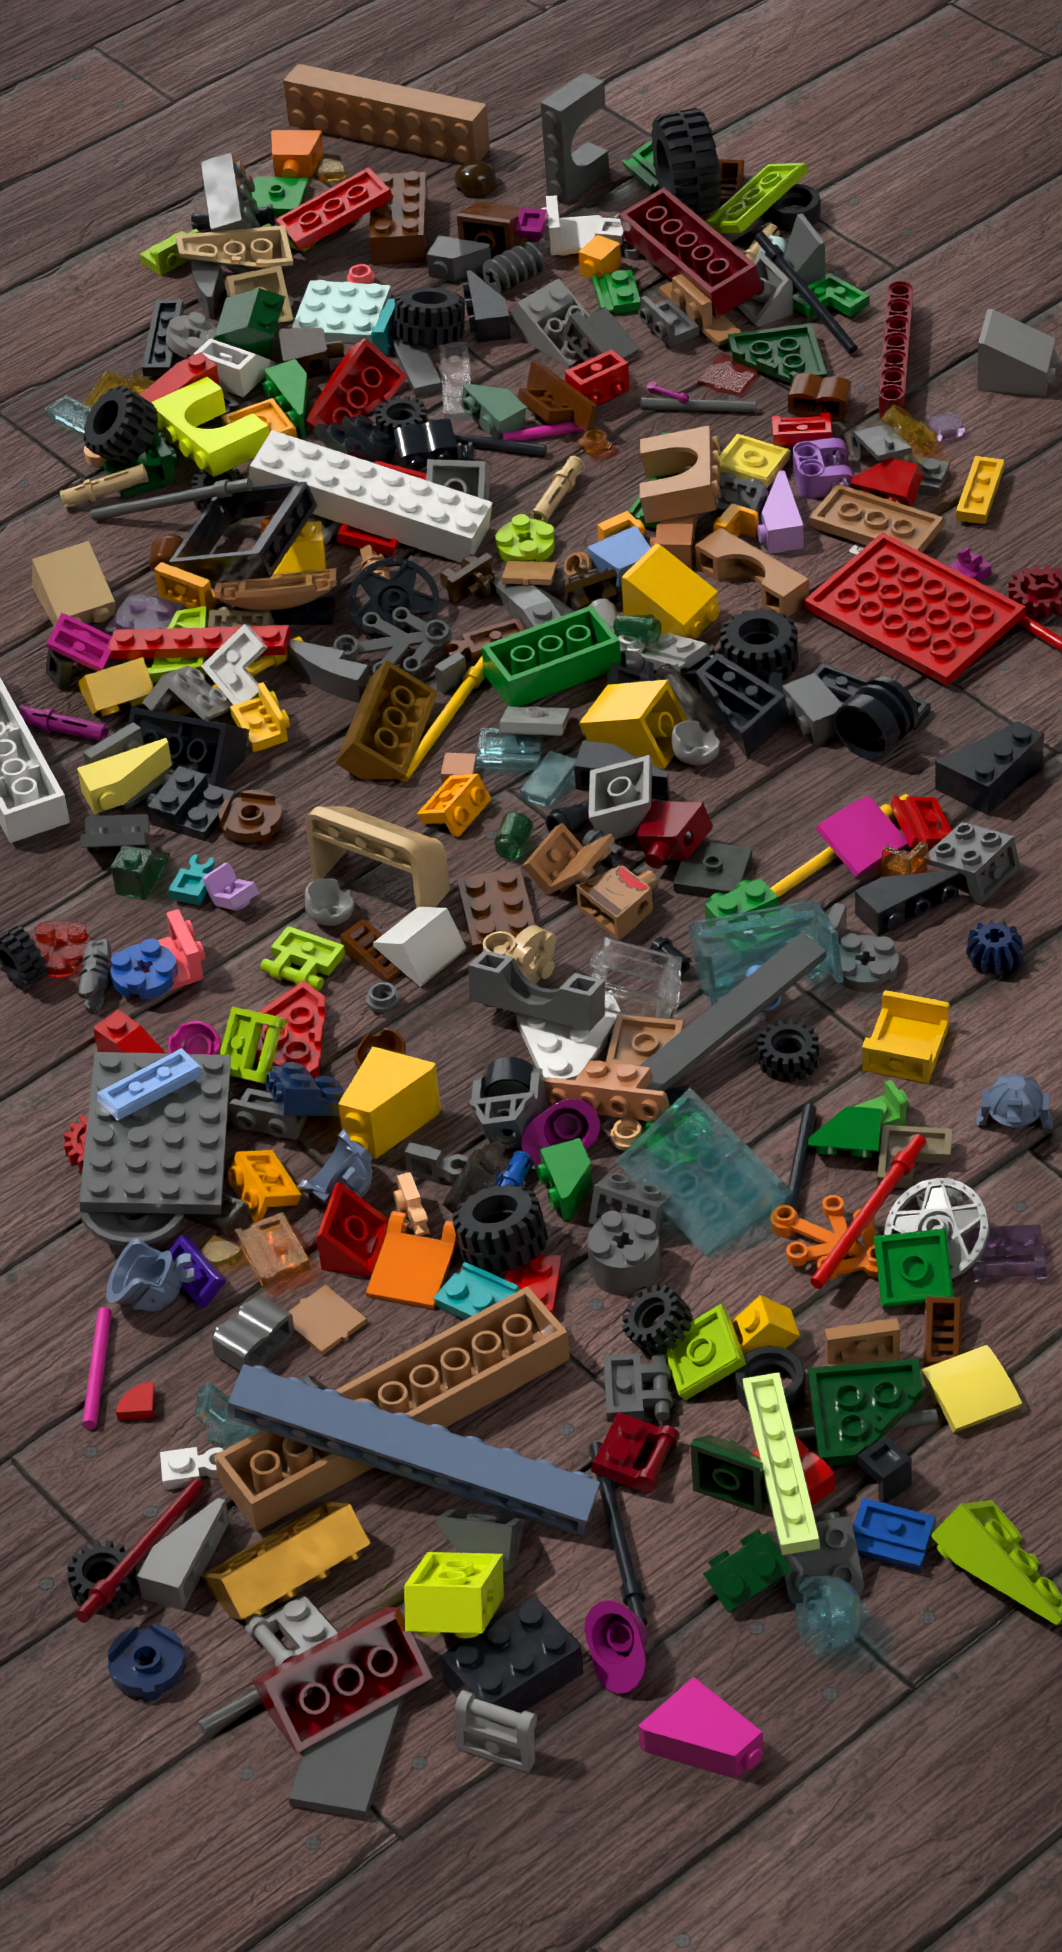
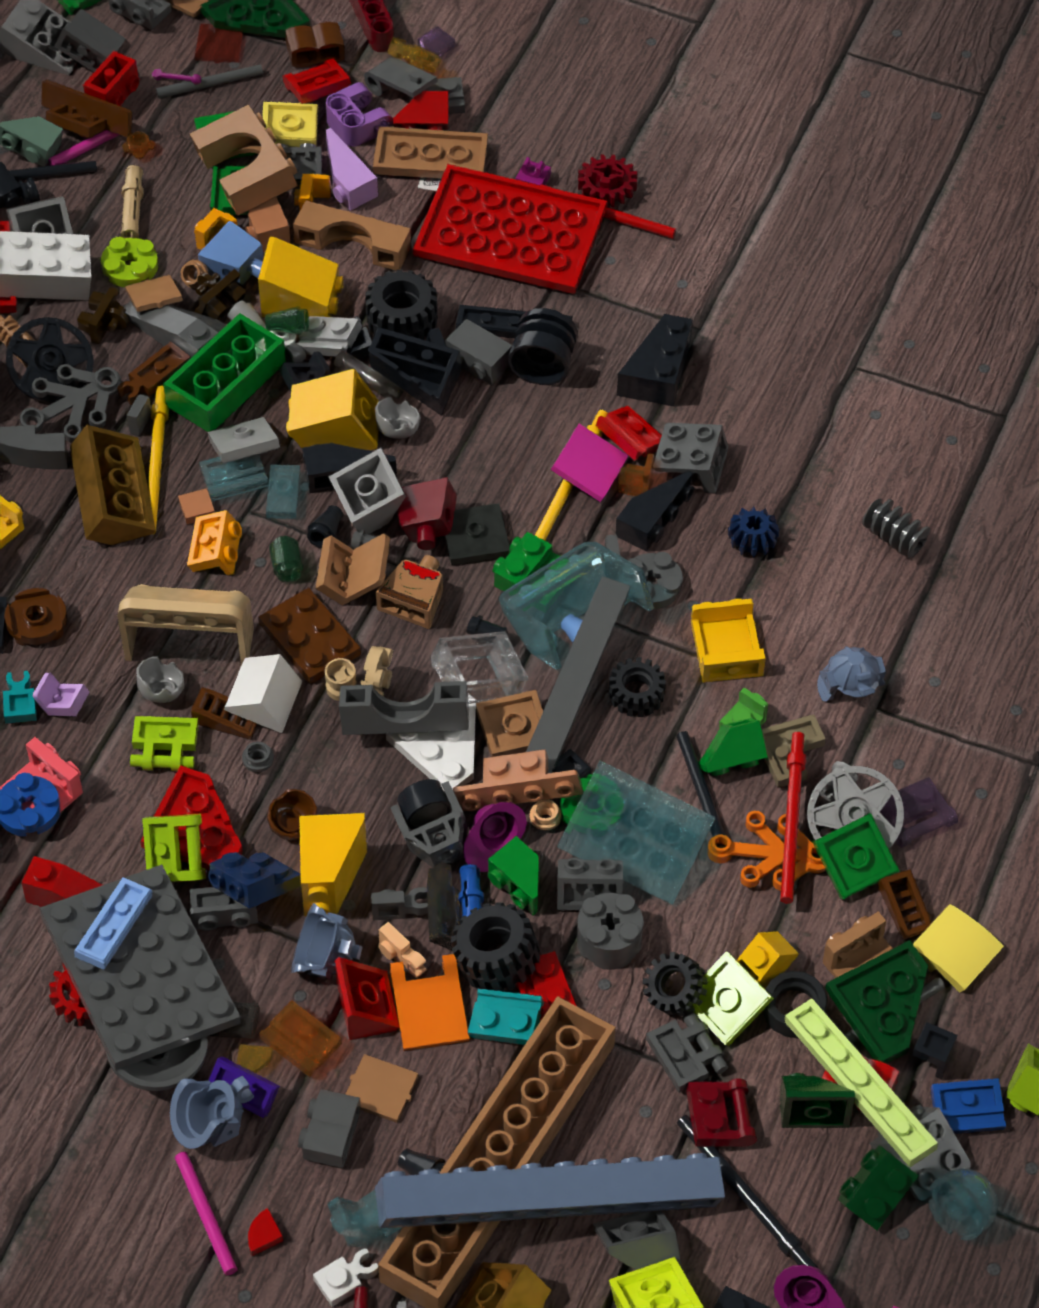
camera: 30 degrees left, 10 degrees up
(195, 1039) = (118, 861): dark pink hair -> none
(261, 1182) = (254, 977): light orange bracket -> none
(980, 490) = (502, 97): yellow plate -> none

